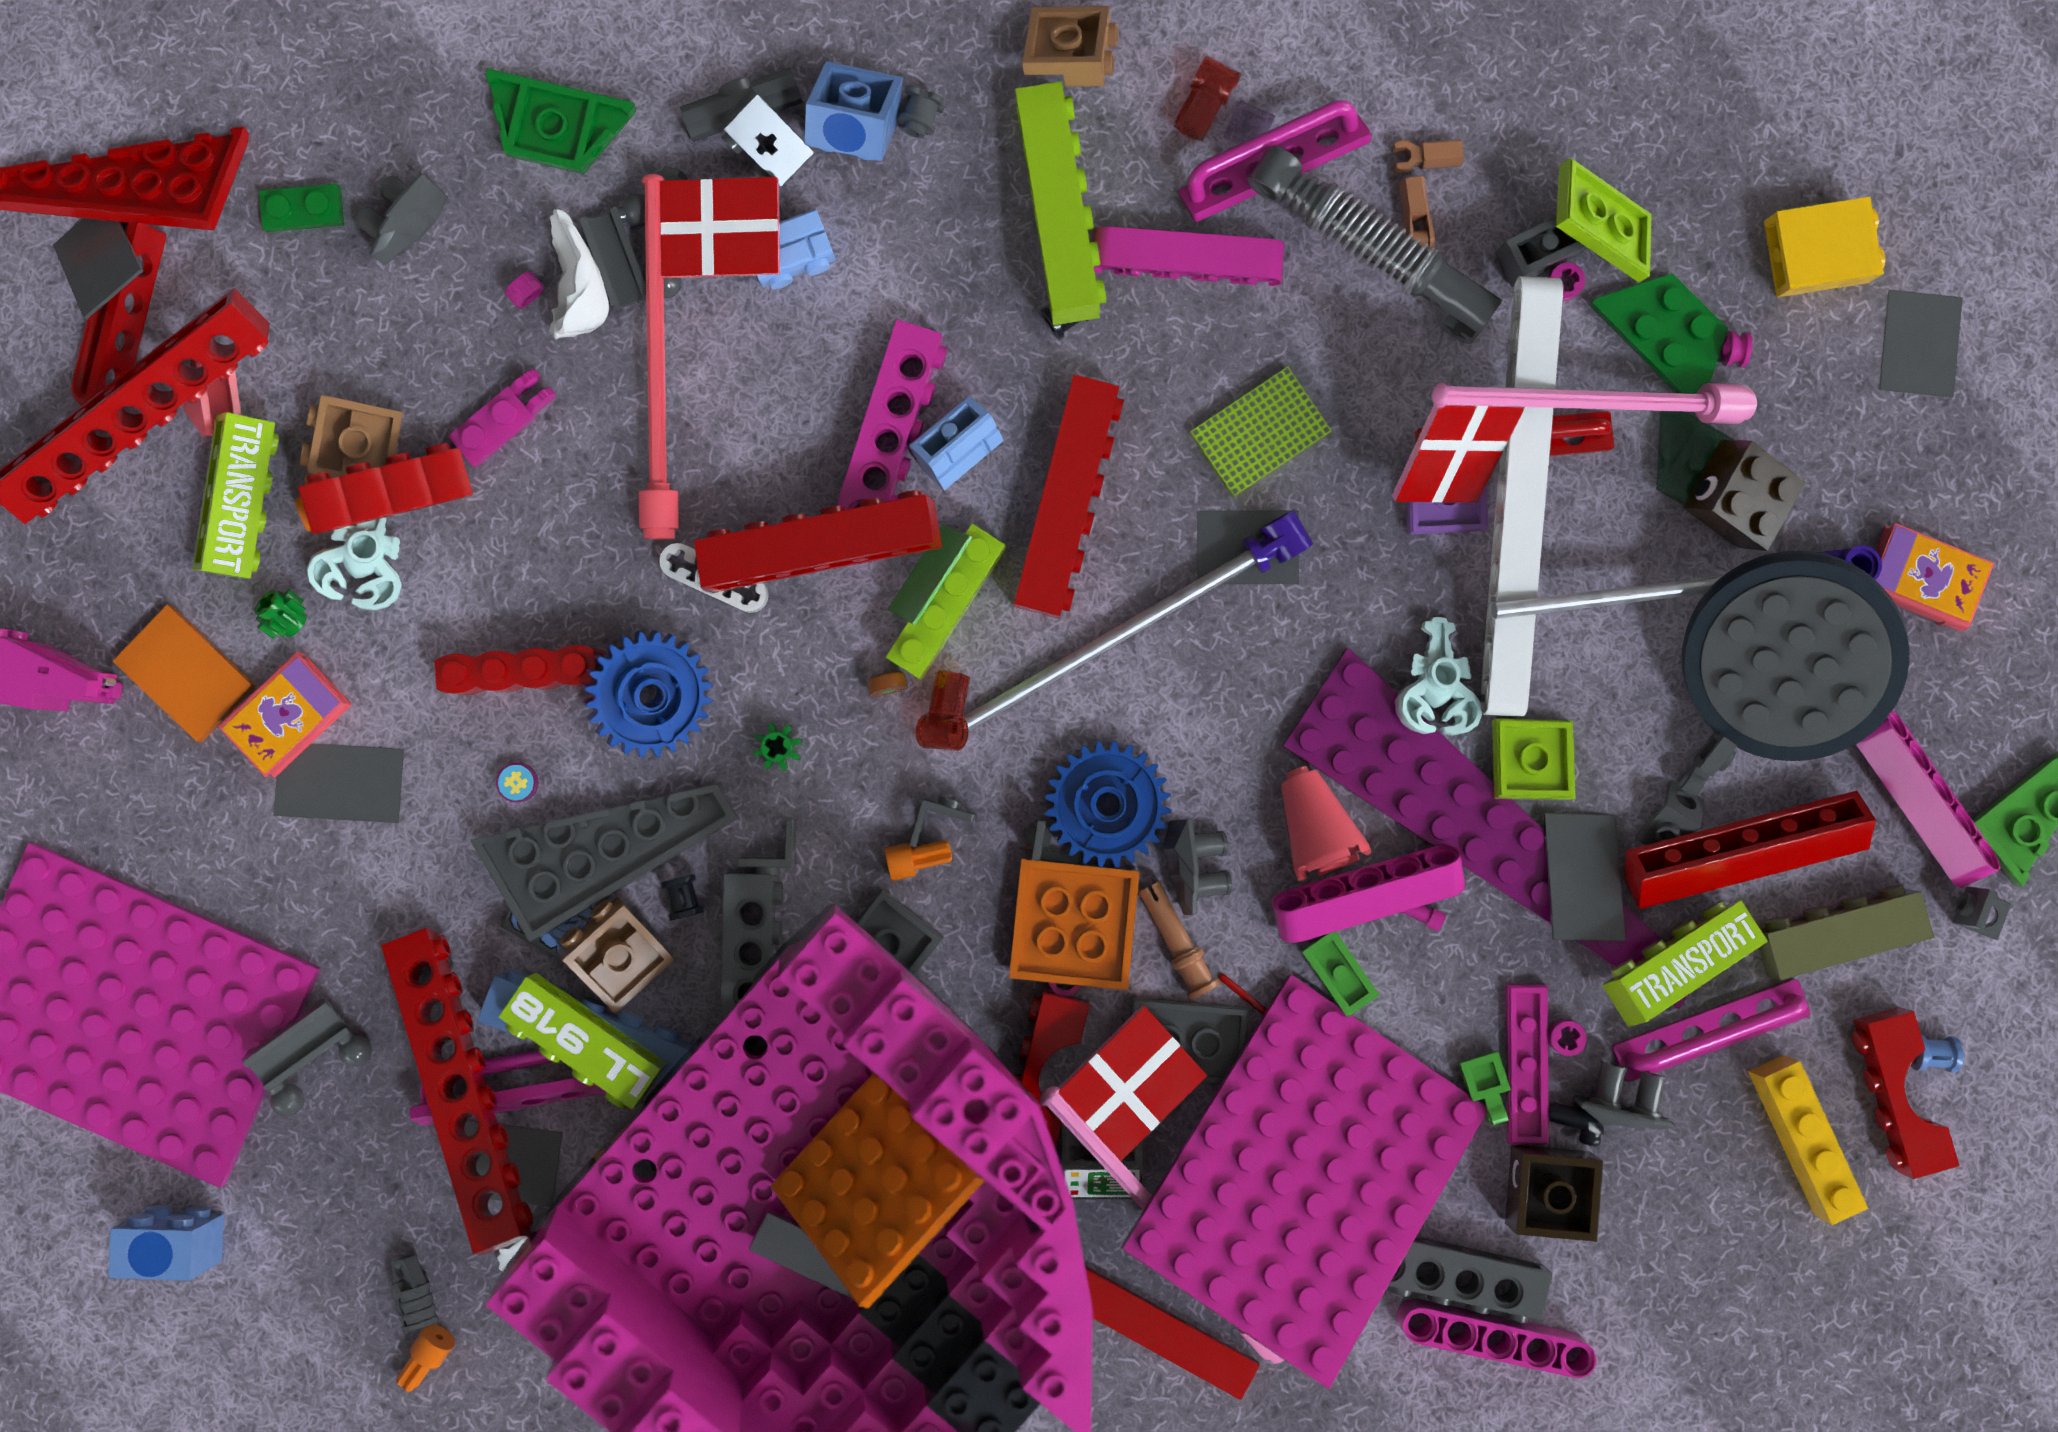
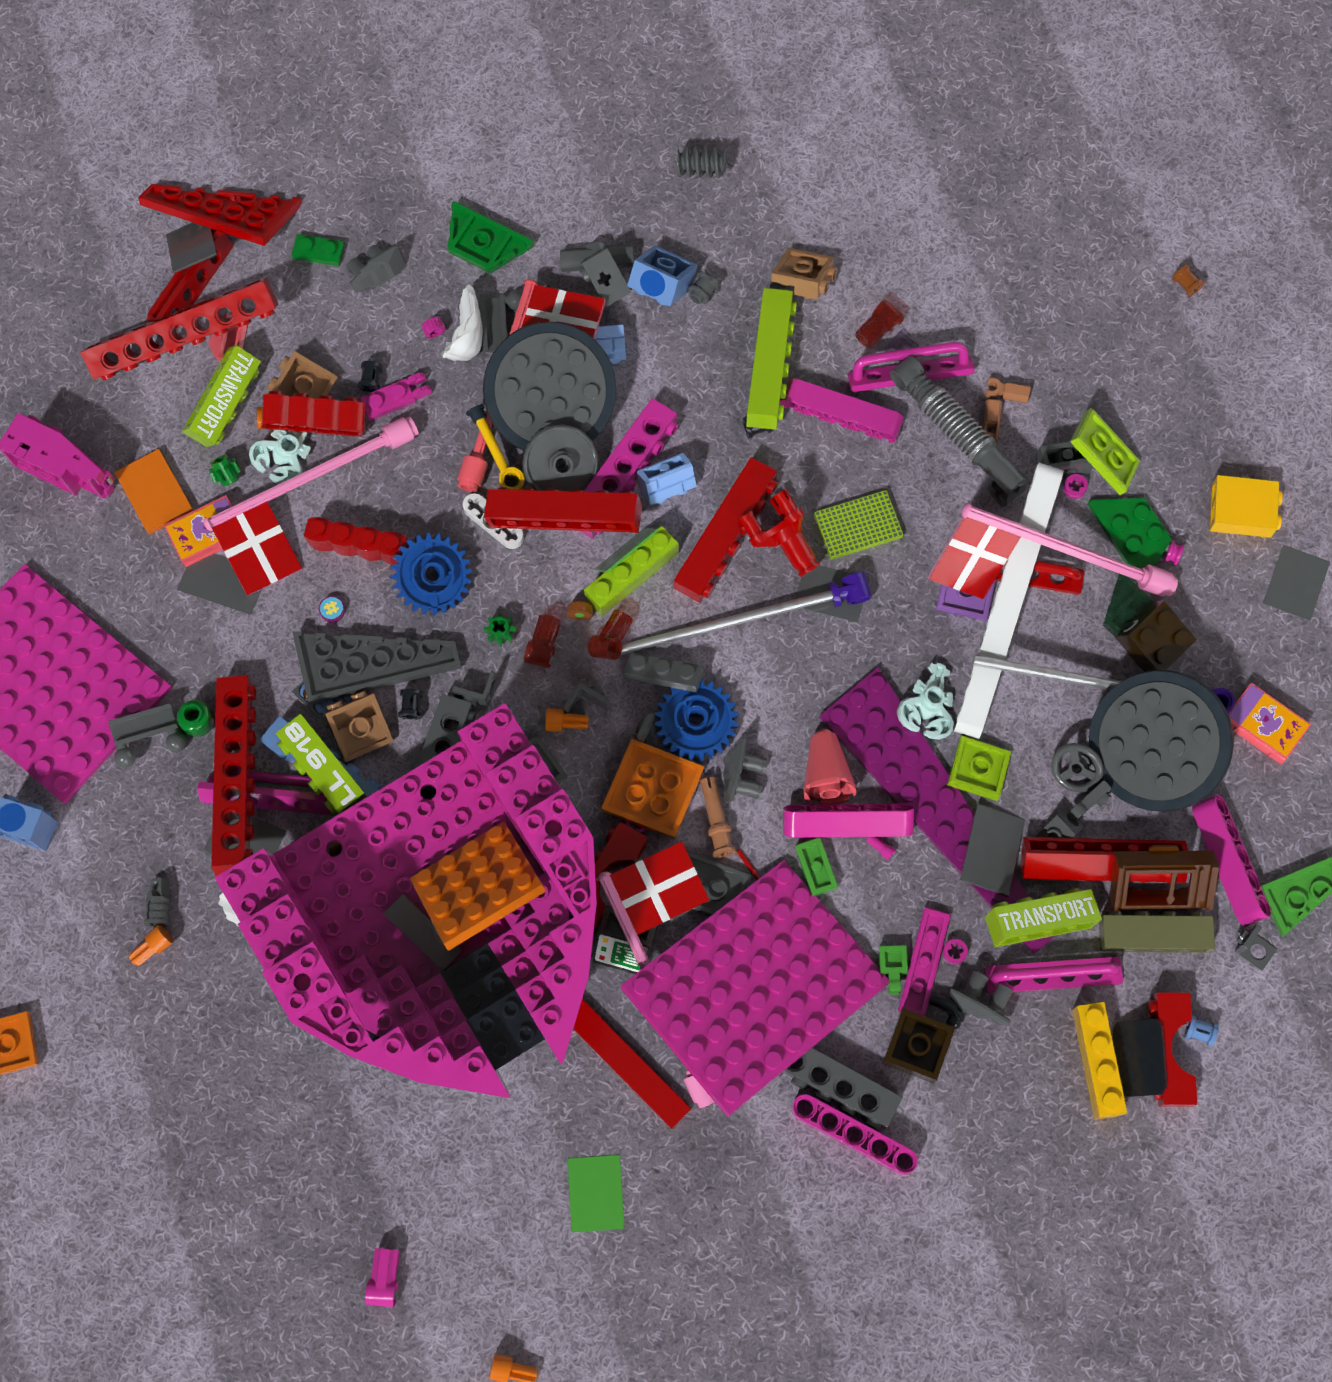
camera: 20 degrees right, 15 degrees down
(357, 703) = (252, 533): none -> flag
(359, 1008) = (195, 718): none -> green head
(452, 398) = (370, 376): none -> black bush
(641, 424) = (479, 417): none -> yellow piece
(736, 351) = (548, 378): none -> dark grey wheel
(773, 443) = (556, 443): none -> dark grey wheel
(847, 750) = (542, 644): none -> clear red piece
(1039, 746) = (663, 672): none -> dark grey plate
(1157, 483) = (785, 534): none -> red wheel
(1676, 718) = (1080, 755): none -> dark grey piece
(1843, 860) = (1164, 859): none -> reddish brown piece
(1864, 1116) = (1140, 1057): none -> black piece

